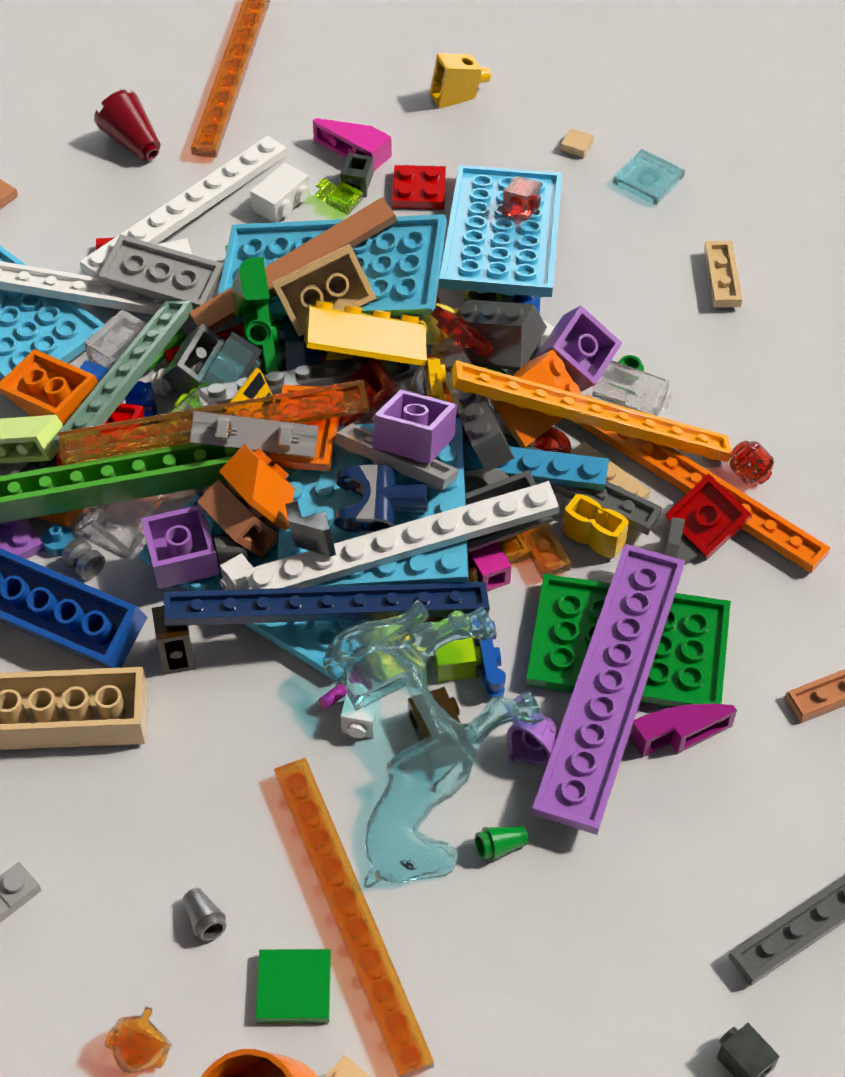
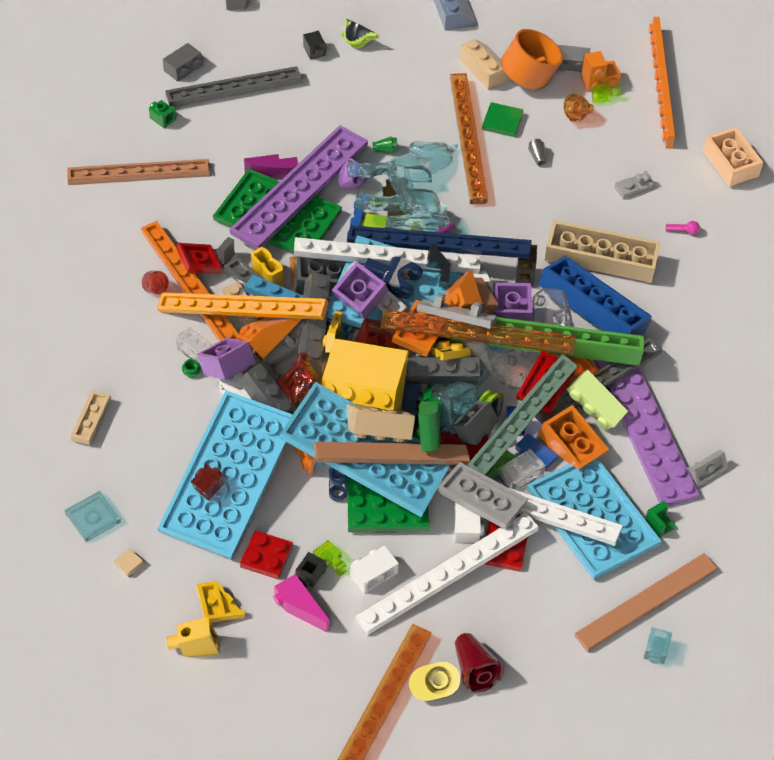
camera: 165 degrees left, 0 degrees up
(172, 106) = (434, 681): none -> light yellow piece
(452, 124) = (217, 603): none -> yellow wing

